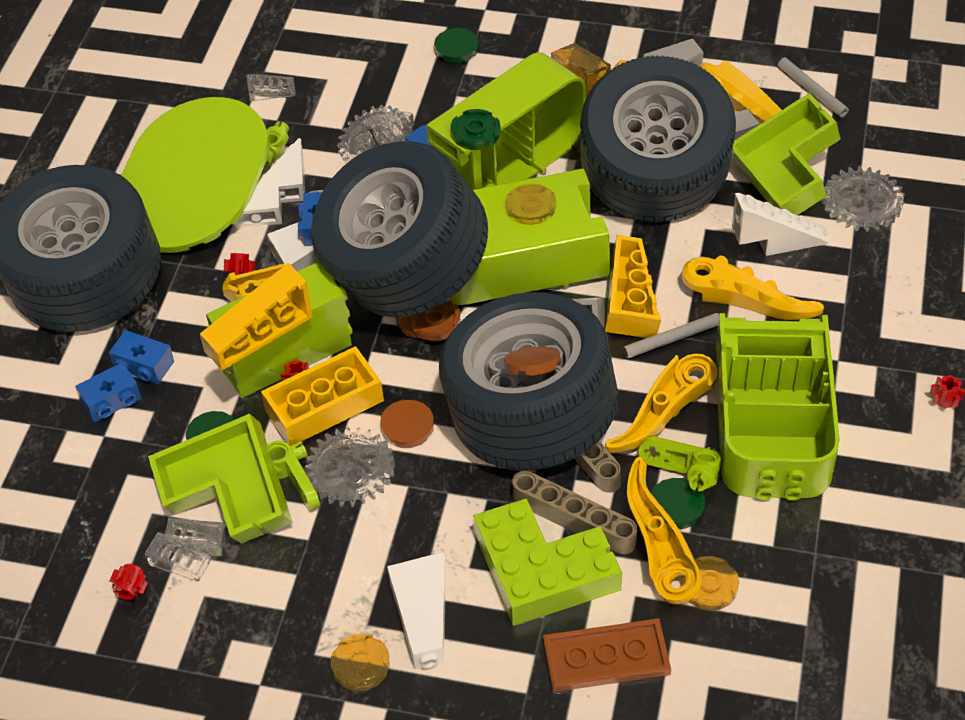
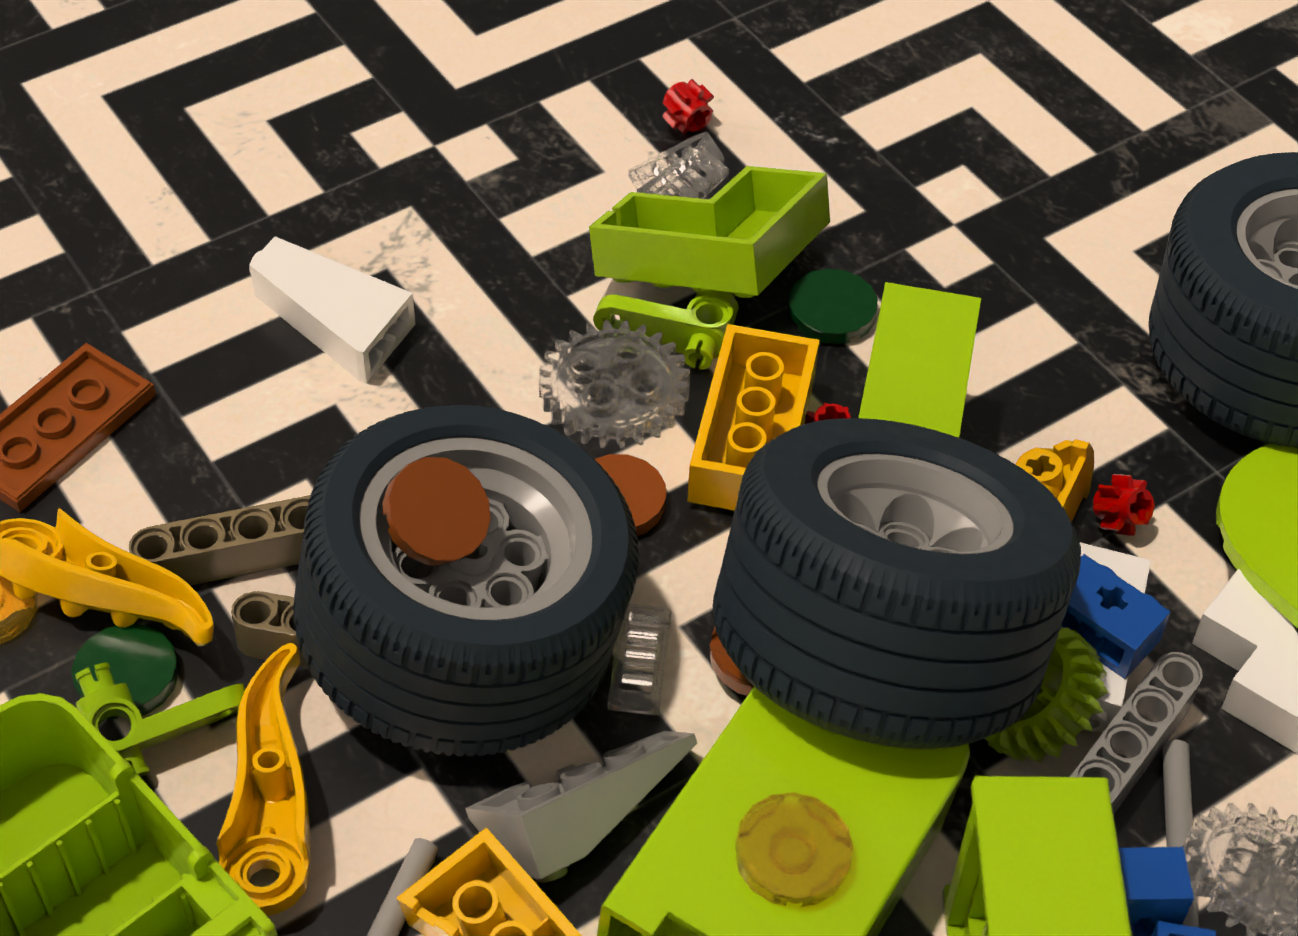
camera: 130 degrees right, 0 degrees up
(108, 392) = (1013, 246): blue brick -> none
(142, 356) = (1046, 309): blue brick -> none
(258, 318) = (884, 310): yellow wedge -> none
(360, 662) = (347, 226): clear yellow tile -> none
(475, 129) = (1010, 827): dark green tile -> none
(539, 575) = (224, 427): lime piece -> none

